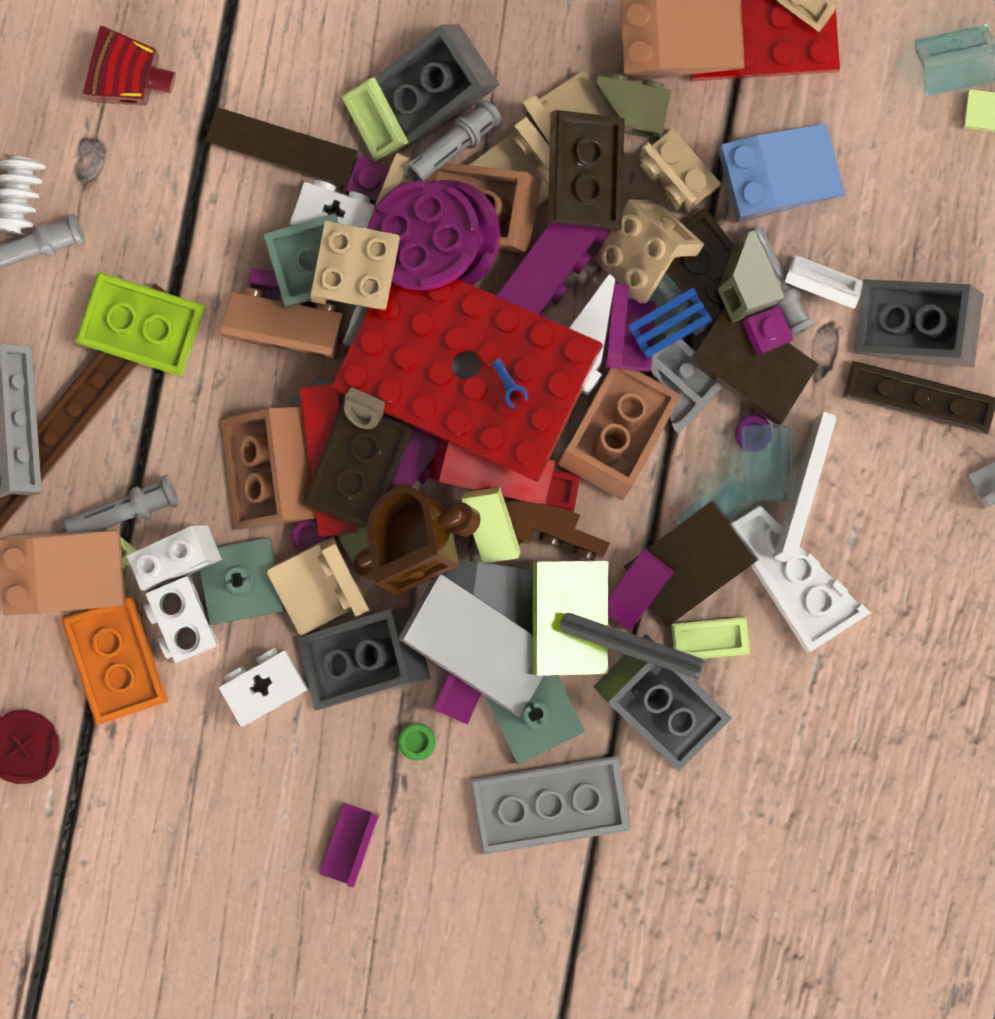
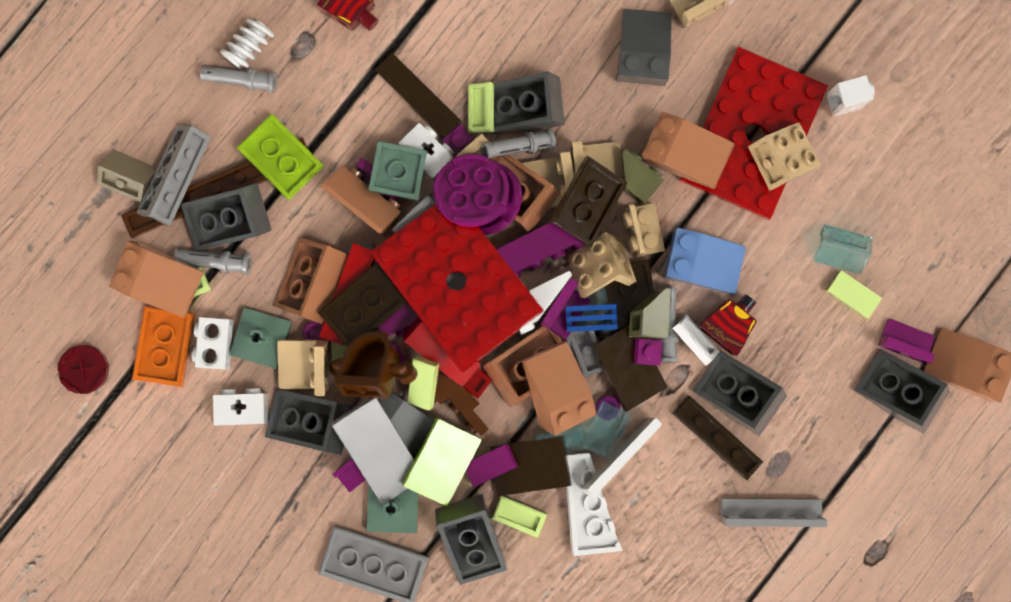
camera: 25 degrees right, 0 degrees up
(110, 442) = (226, 217): none -> dark grey slope
(174, 557) = (227, 304): white brick -> none
(349, 844) = (243, 527): magenta panel -> none
(354, 266) = (420, 187): tan bracket -> none
(363, 409) = (381, 275): dark tan tile -> none
(417, 741) = (315, 486): bright green tile -> none
(508, 383) = (474, 305): blue hand -> none
(632, 645) = (468, 499): dark grey axle -> none
(675, 440) = (558, 389): none -> nougat slope
(859, 237) = (730, 324): none -> torso

